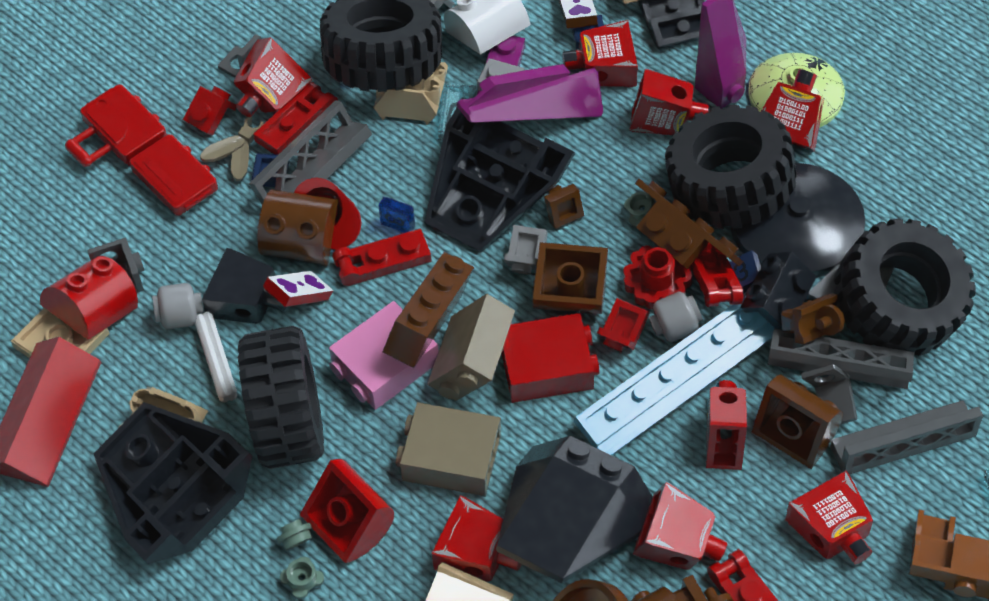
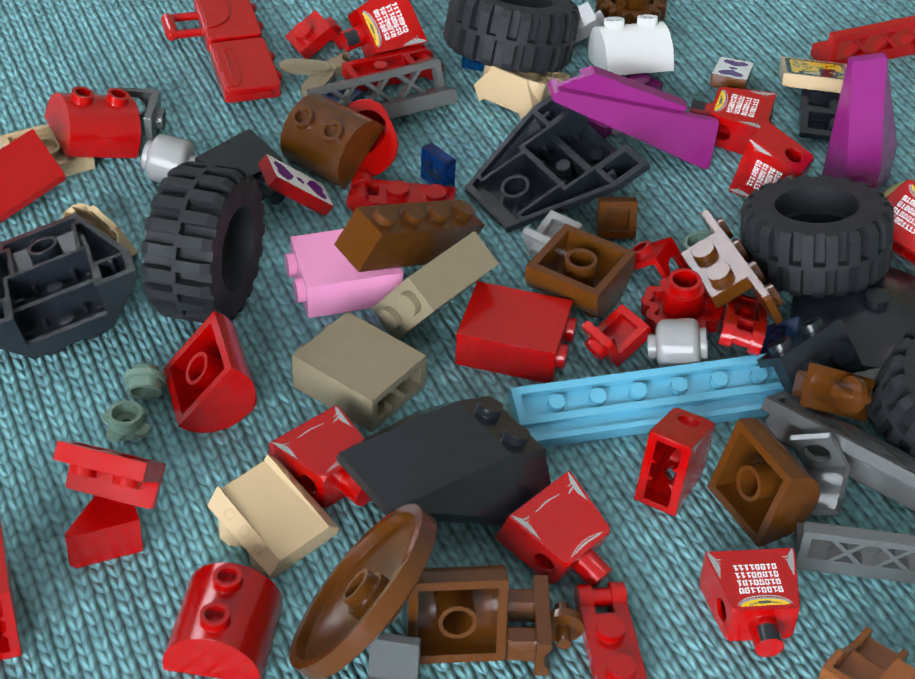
camera: 20 degrees right, 15 degrees down
(614, 233) = (658, 254): none -> red bracket

